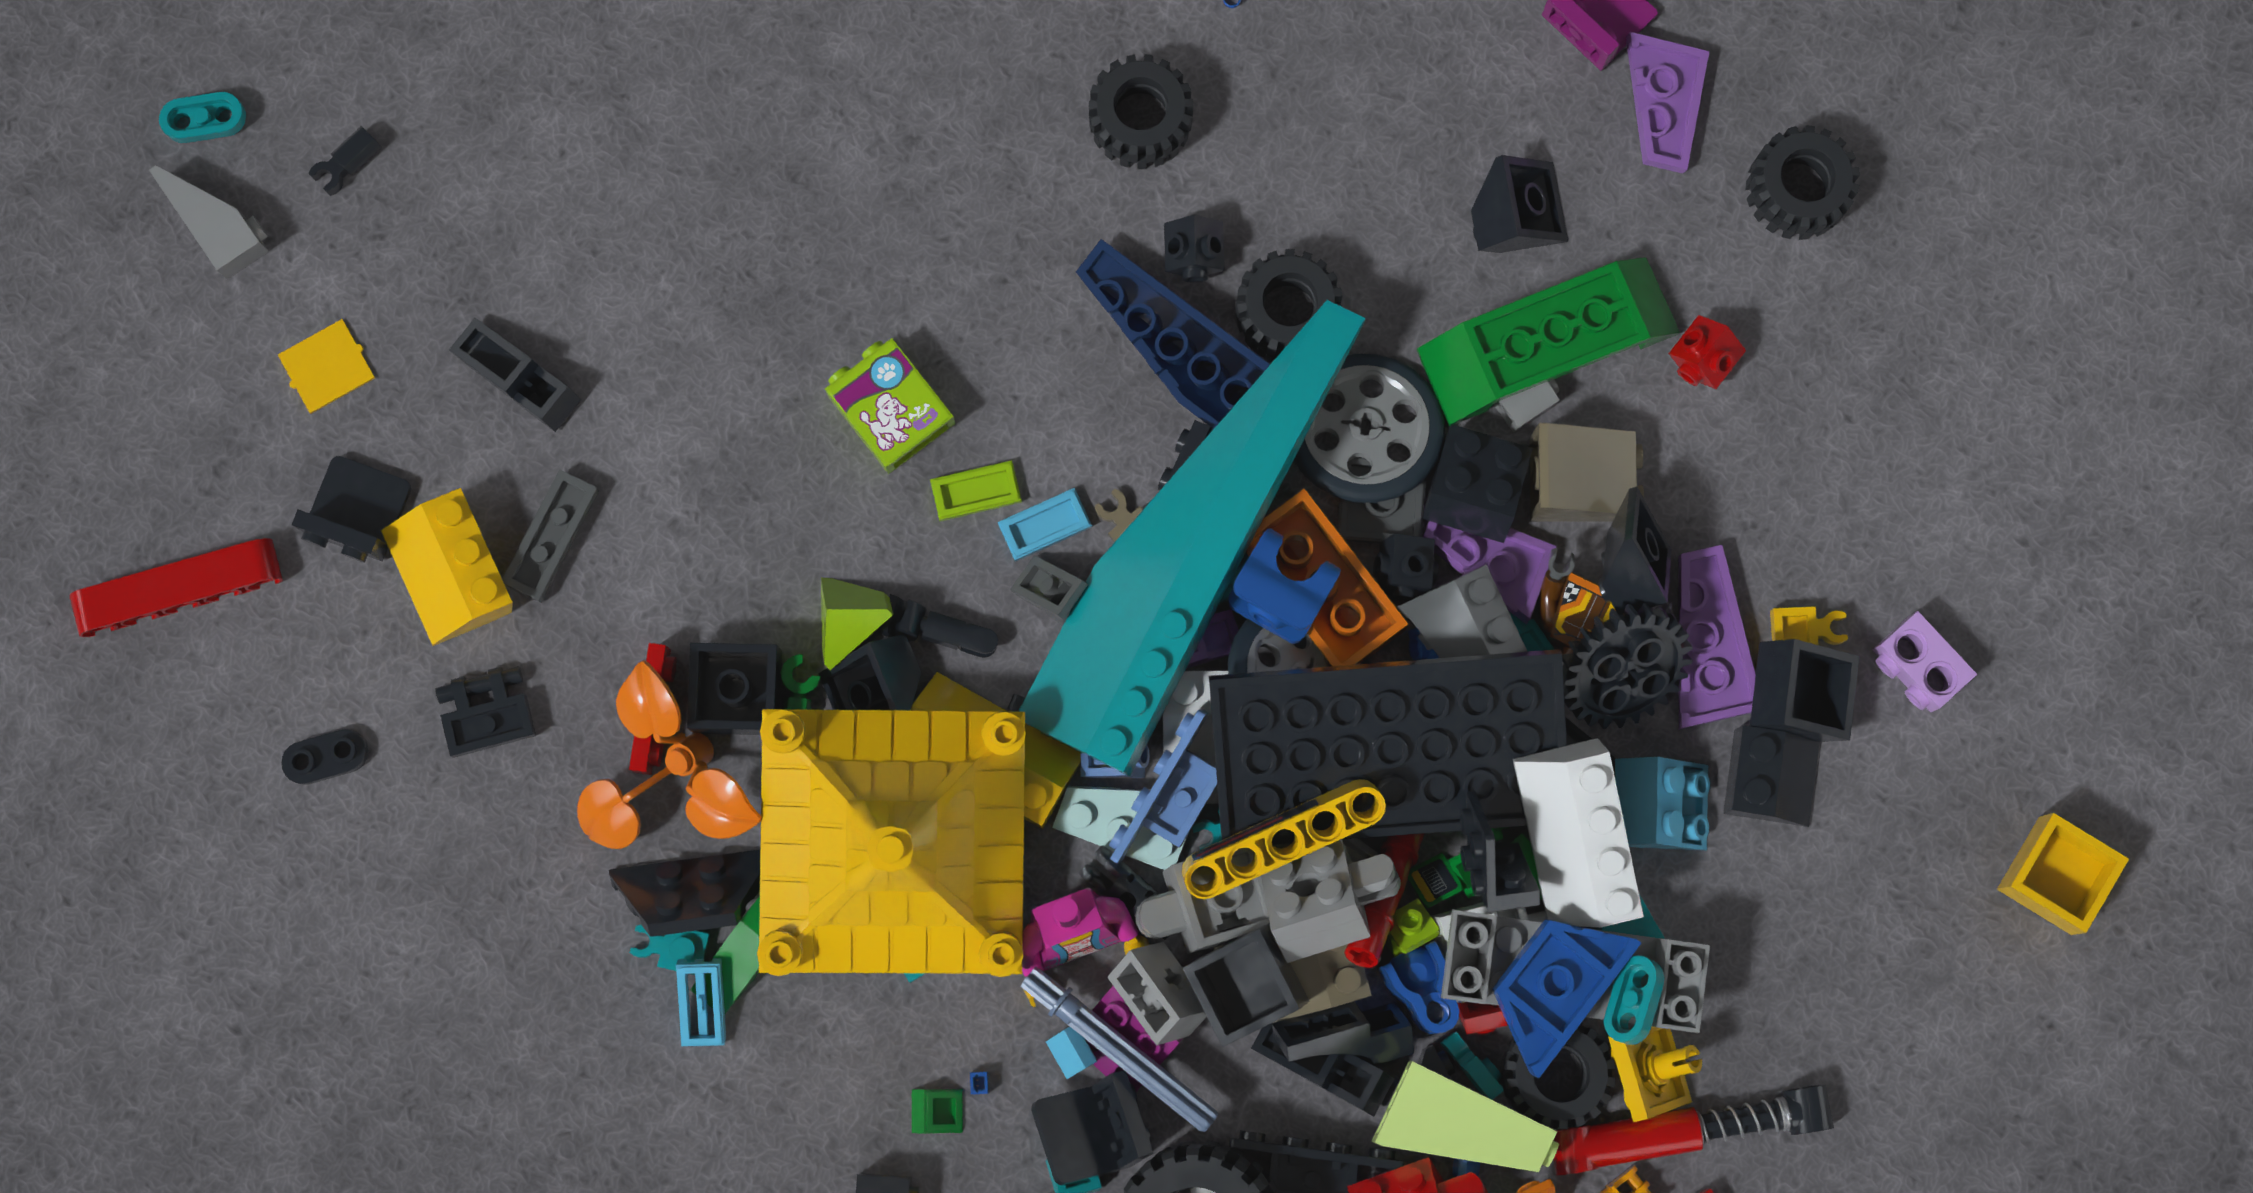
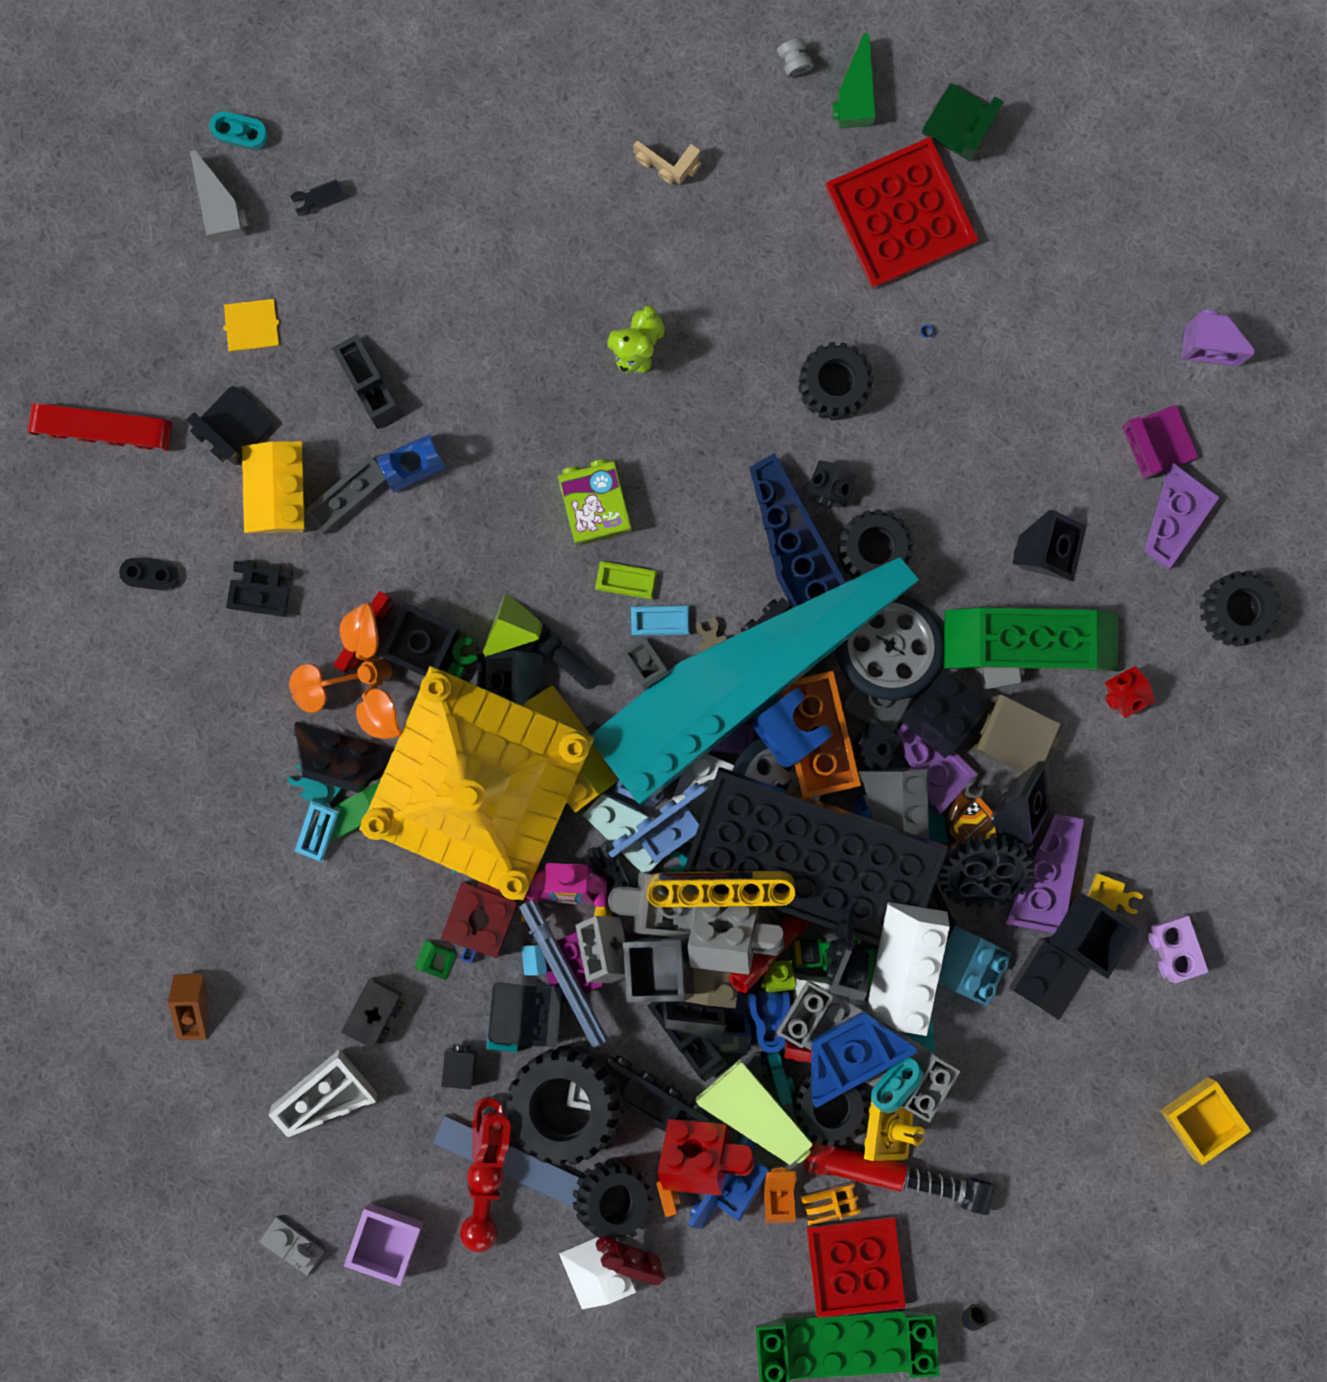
camera: 25 degrees right, 5 degrees up
(622, 455) = (411, 463): none -> blue piece
(856, 168) = (636, 344): none -> lime animal
(974, 1025) = (480, 918): none -> dark red brick

